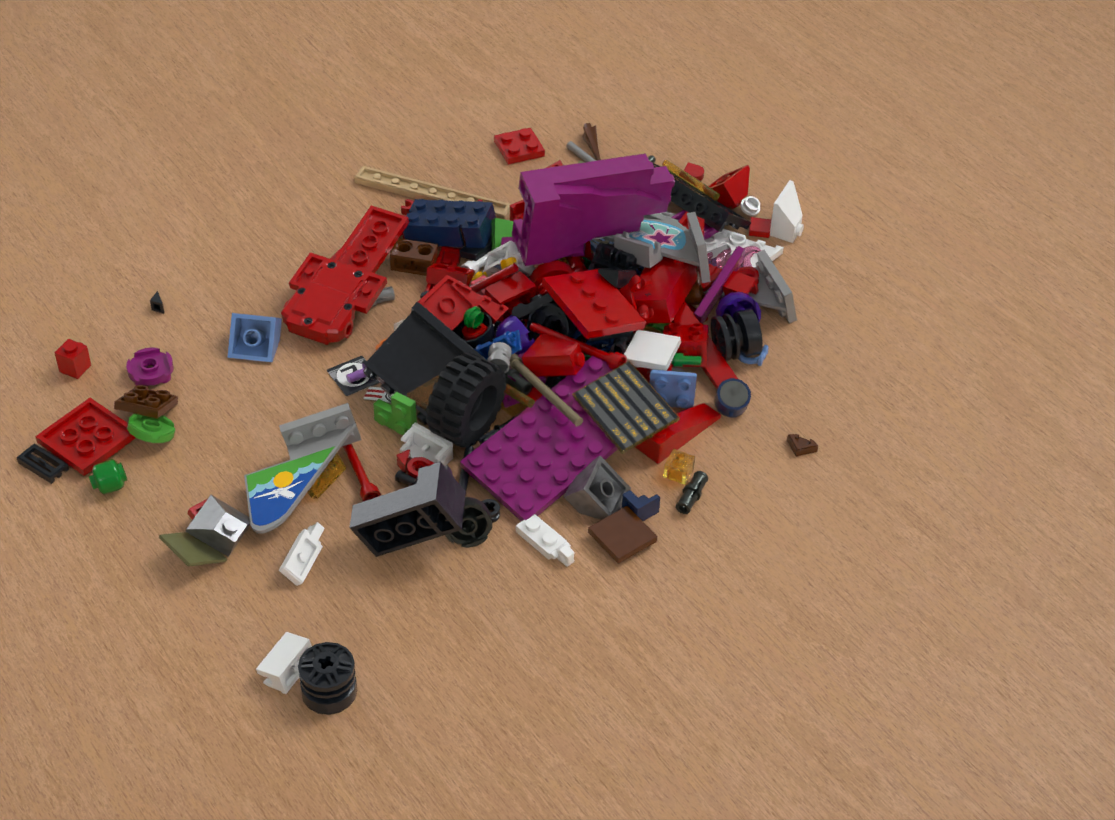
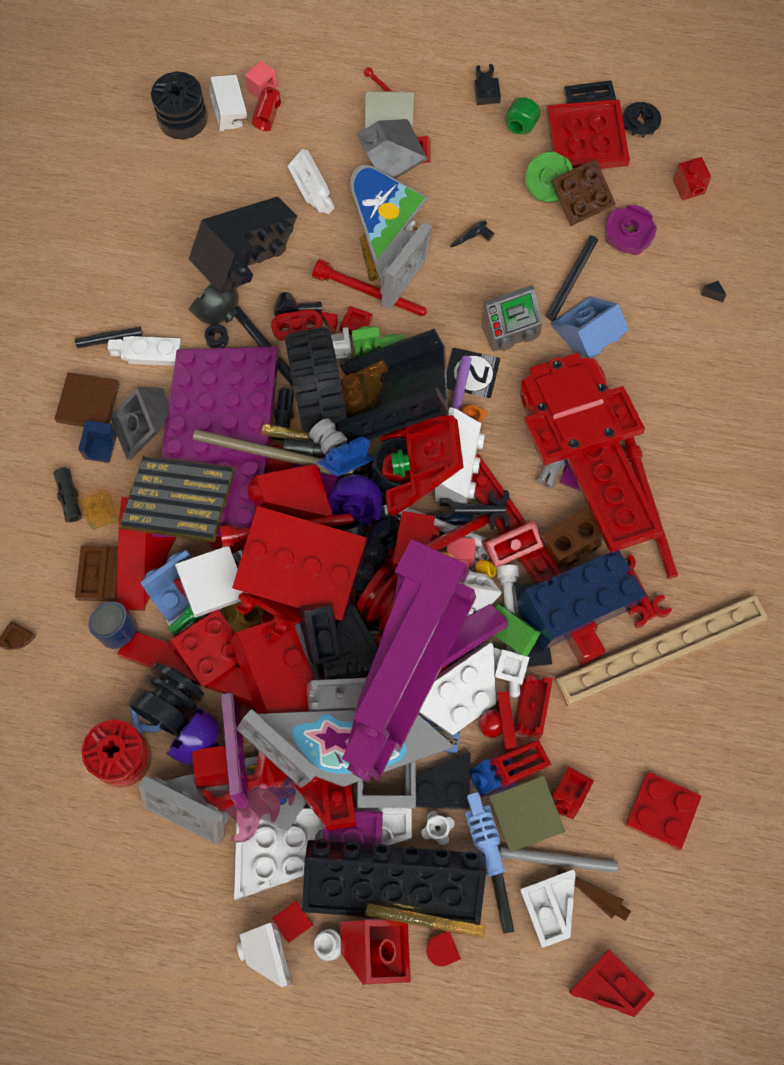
camera: 140 degrees right, 25 degrees up
(39, 413) = (649, 114): none -> black gear
(96, 522) = (486, 87): none -> black plate
(162, 573) = (368, 72): none -> red hinge
(222, 373) = (571, 278): none -> black bar
(241, 656) = (260, 78): none -> coral plate
(244, 442) = (474, 231): none -> black bar
(263, 632) = (266, 109): none -> red piece
(296, 369) = (512, 319): none -> flat silver slope
(386, 451) = (355, 319): none -> red tile
(563, 569) = (103, 338): none -> black piece
(619, 147) = (551, 907): none -> white wing
(625, 113) = (613, 986): none -> red wing
(714, 435) = (97, 574): none -> reddish brown plate
(790, 336) = (125, 766): none -> red wheel

